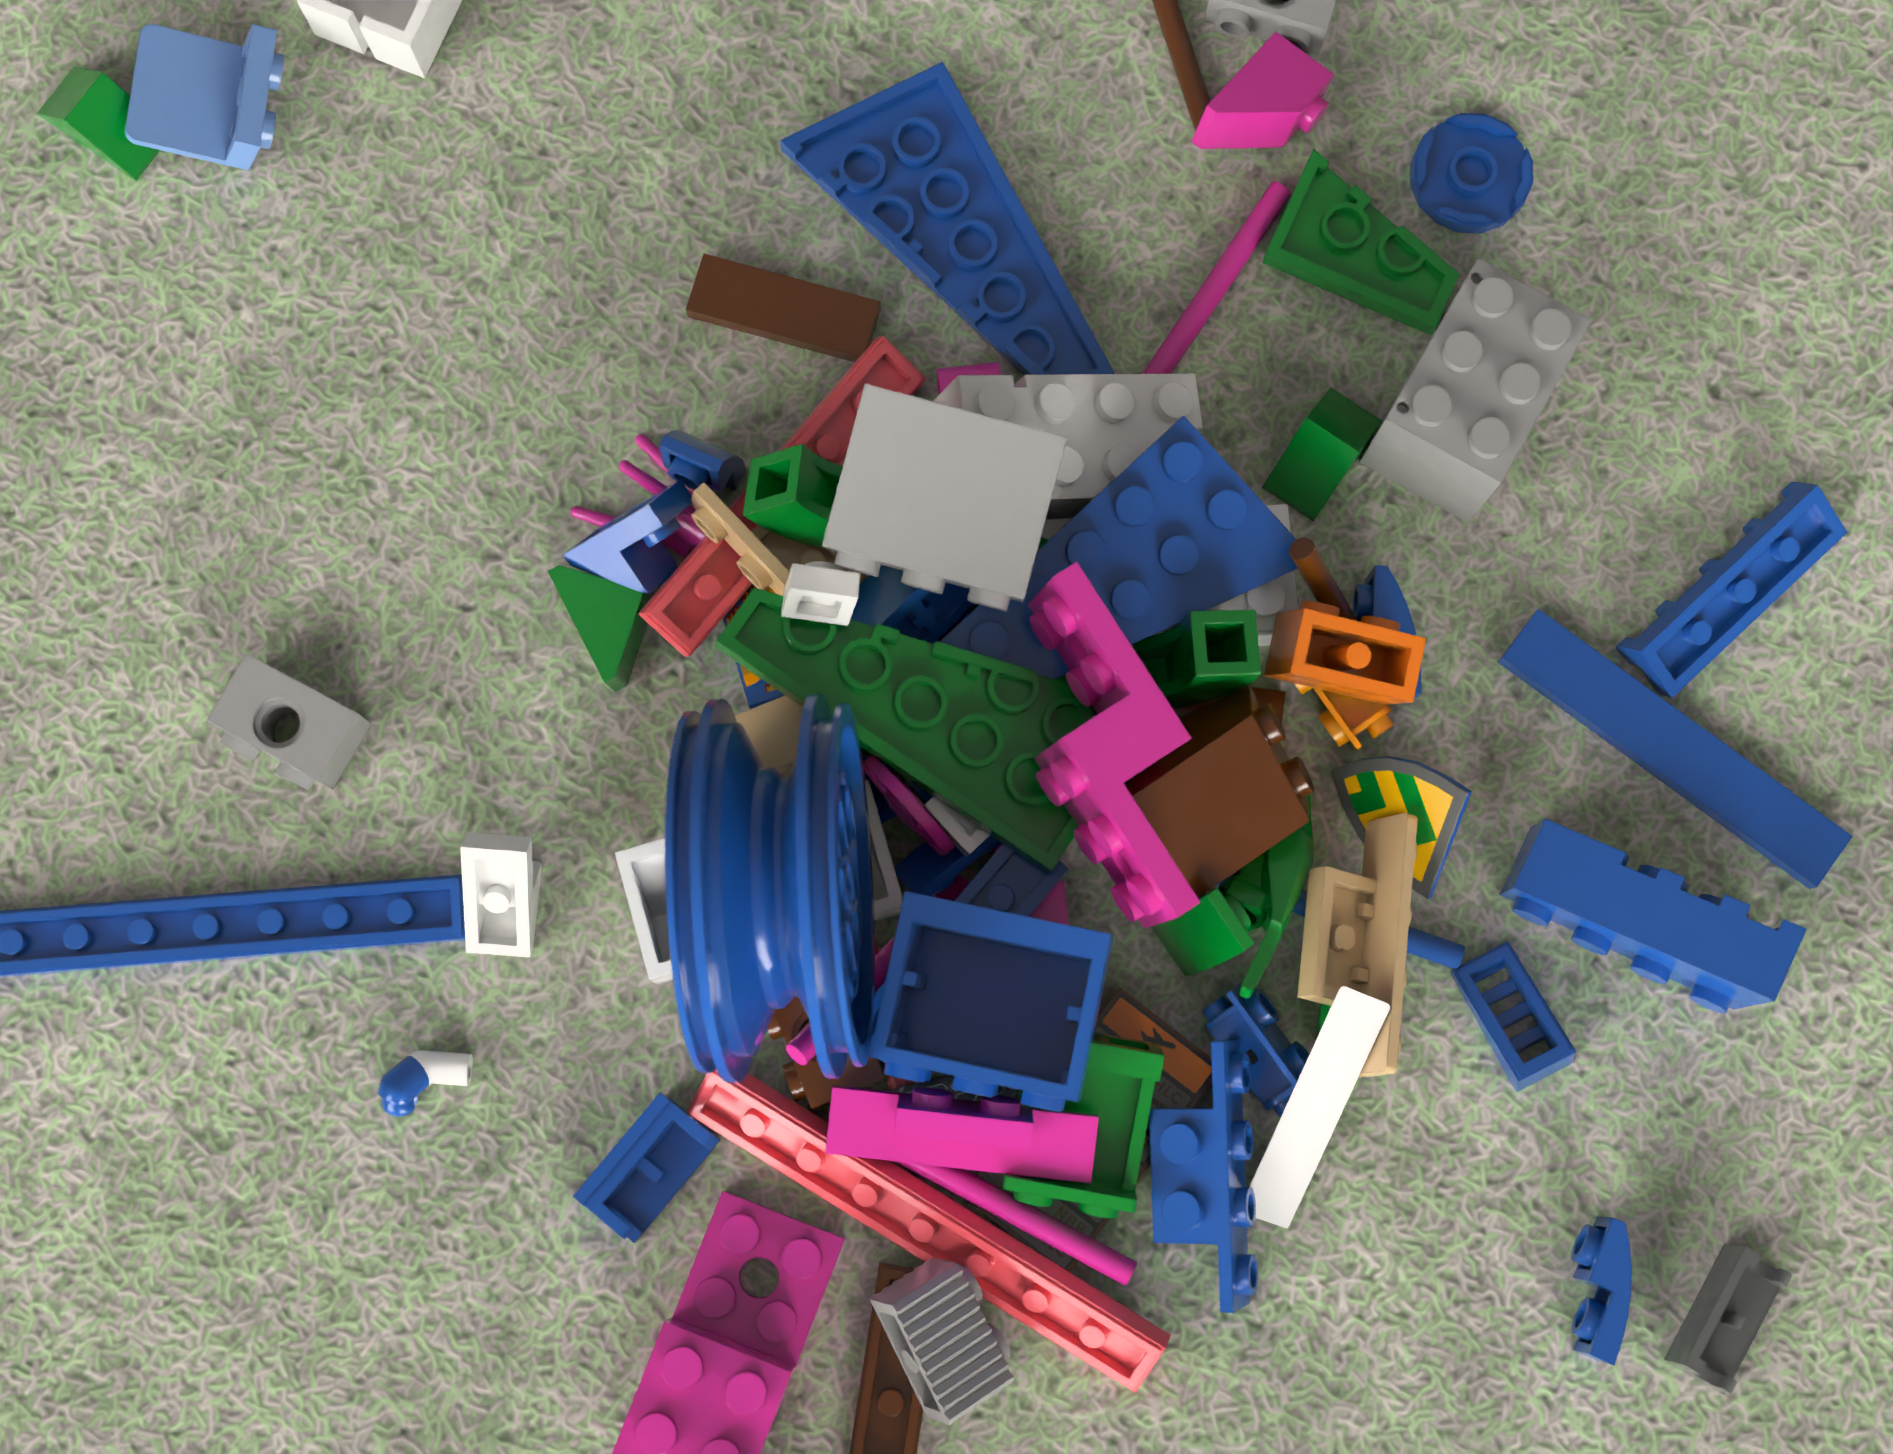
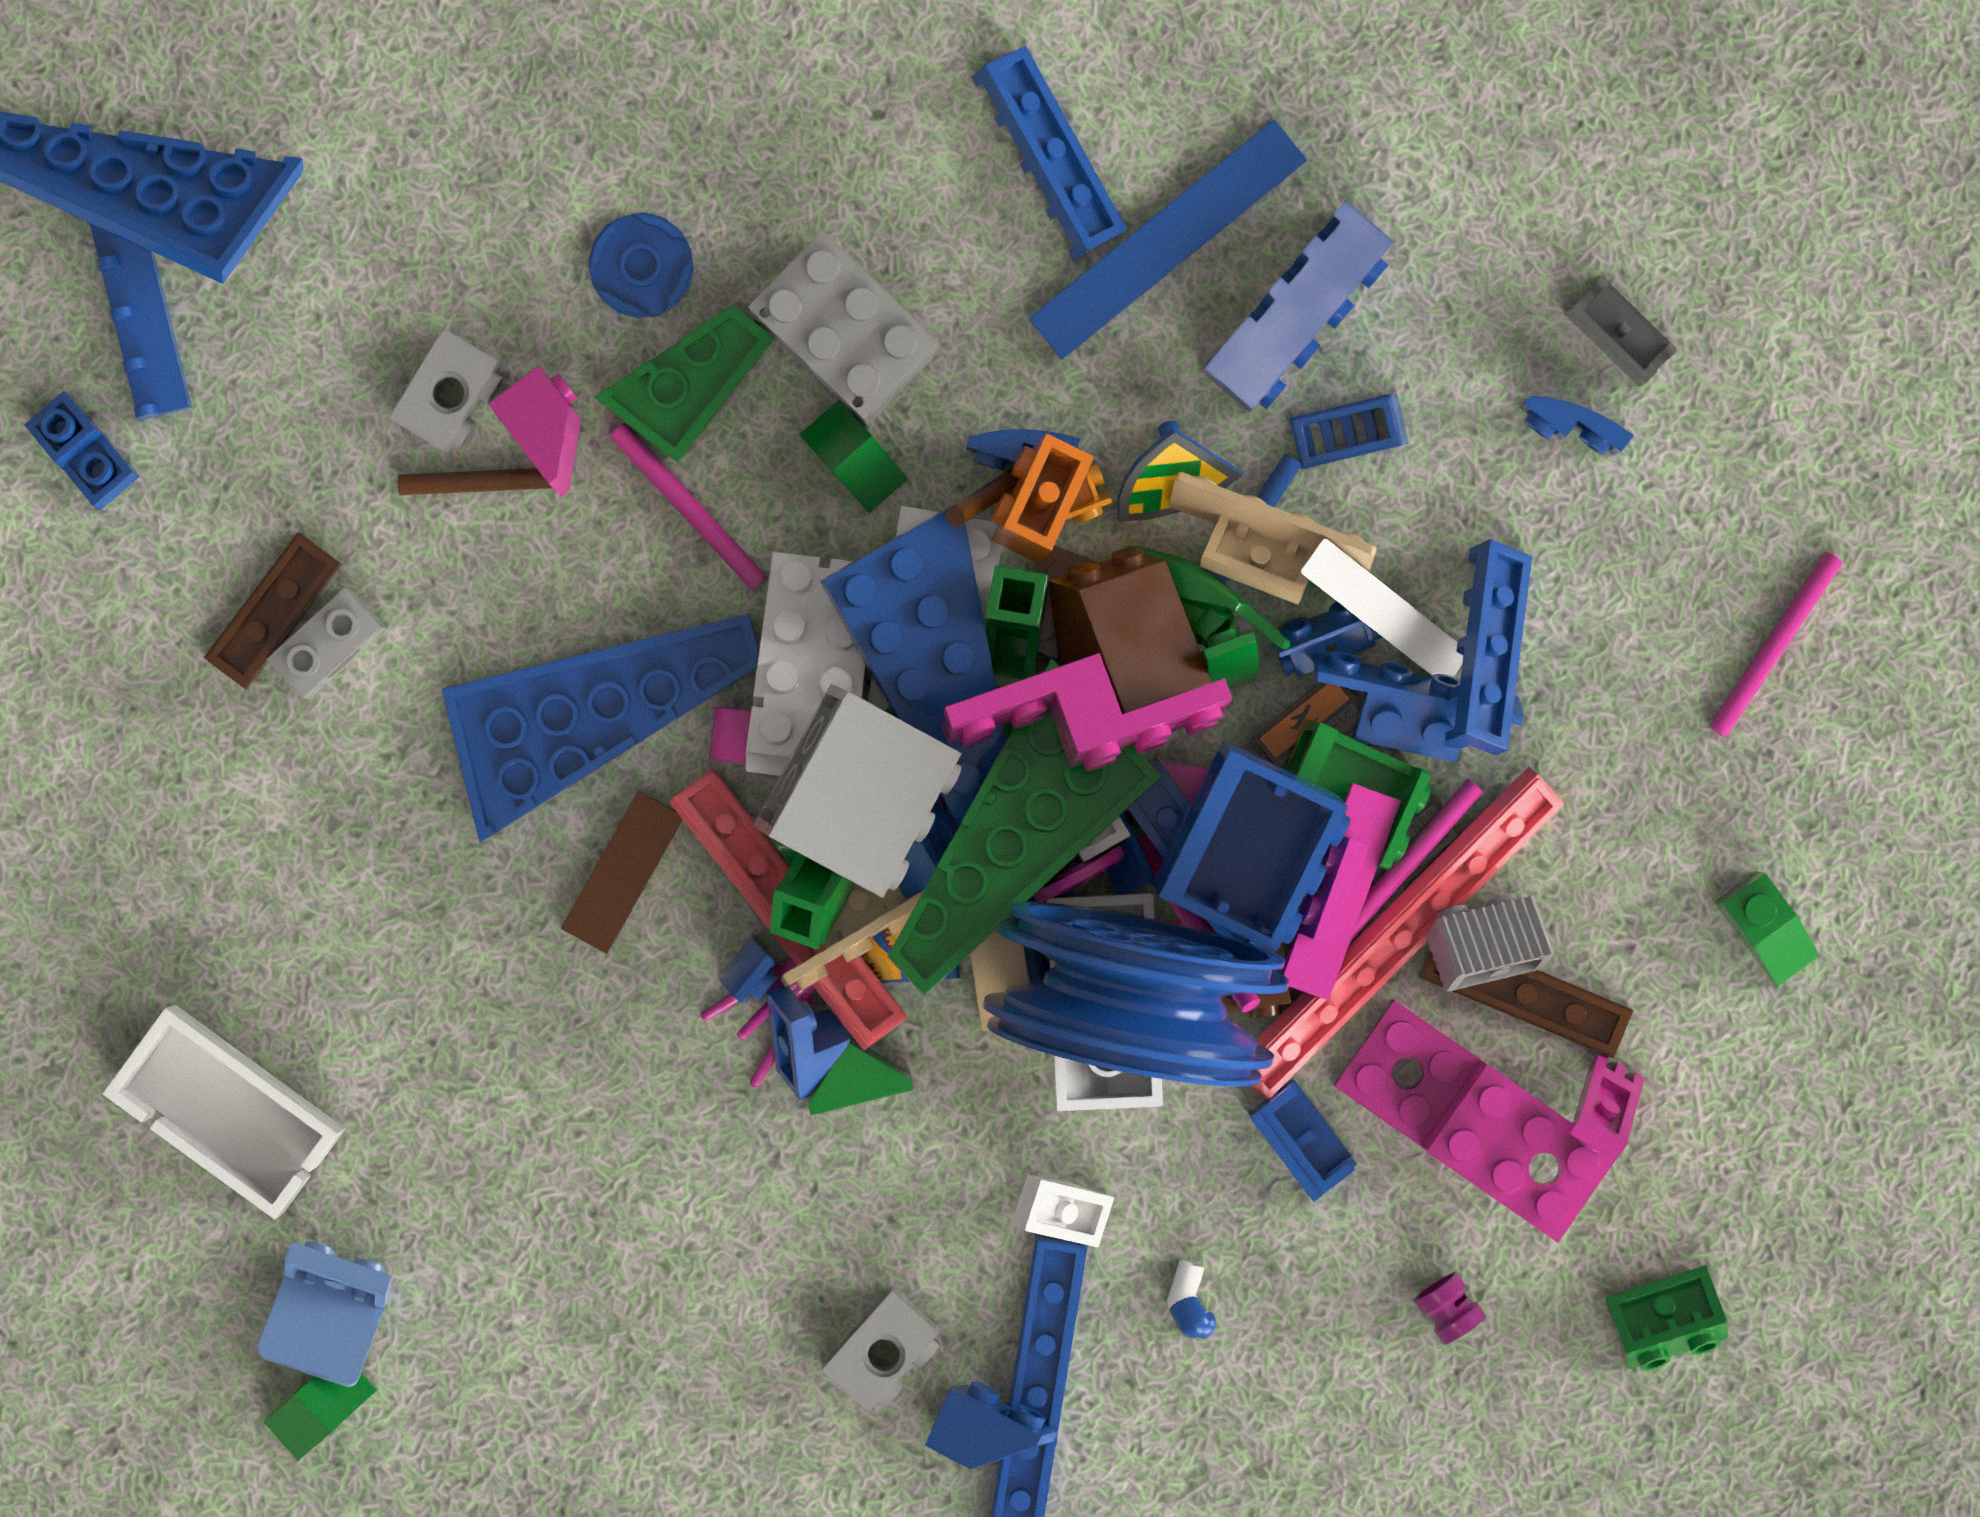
camera: 75 degrees left, 10 degrees up
(215, 861) = (981, 1430): none -> blue slope
(478, 1403) = (1449, 1308): none -> magenta wheel
(820, 593) = (908, 905): white plate -> none
(1304, 1249) = (1490, 648): none -> blue hinge

